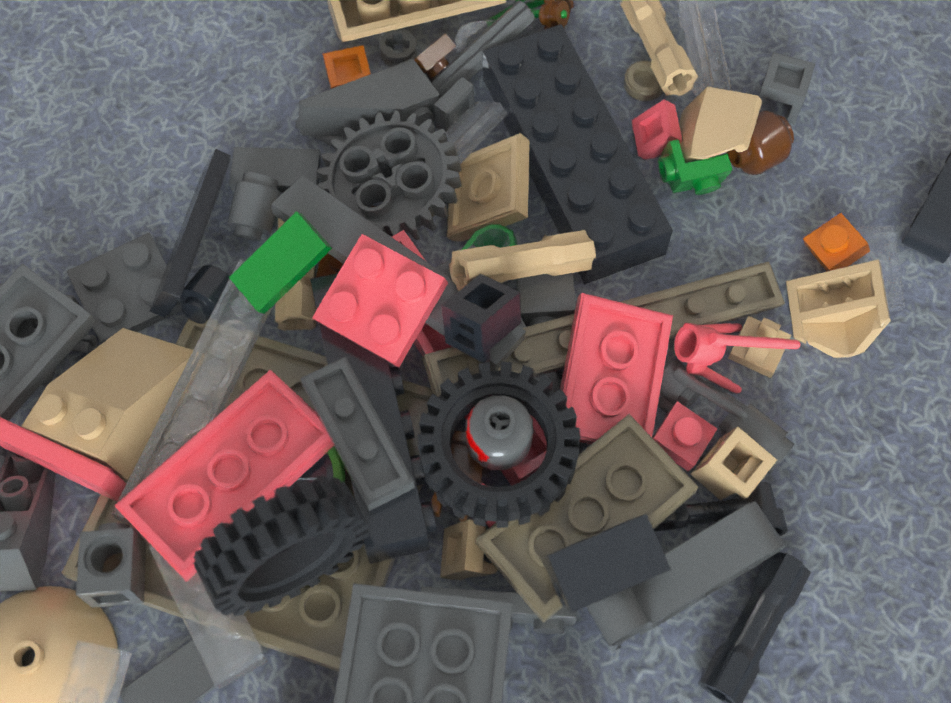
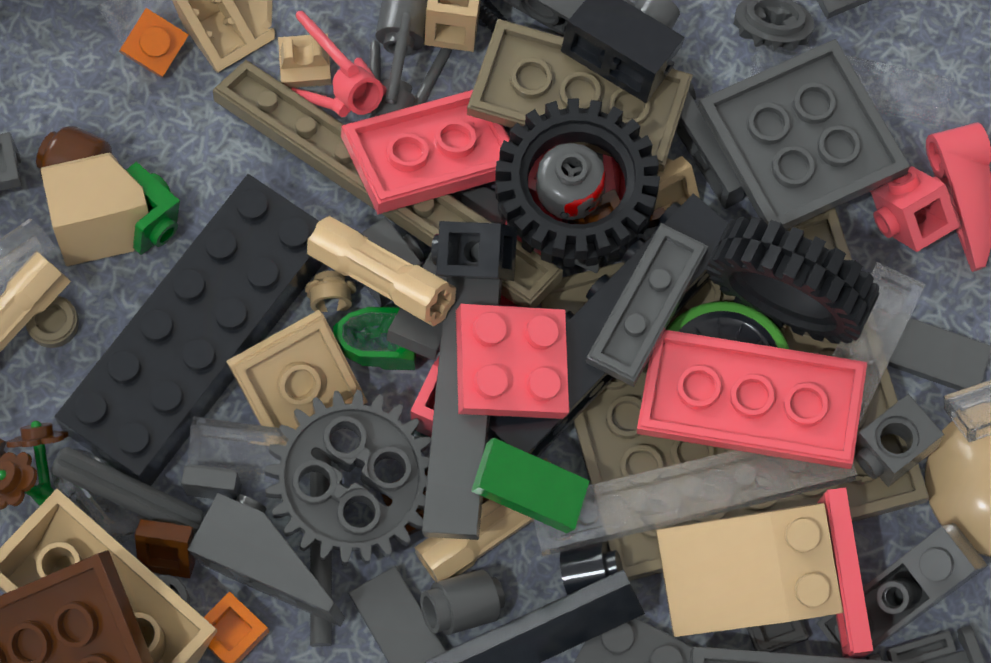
camera: 125 degrees left, 5 degrees up
(655, 129) = (118, 268): coral plate -> none
(684, 435) = (442, 72): coral plate -> none

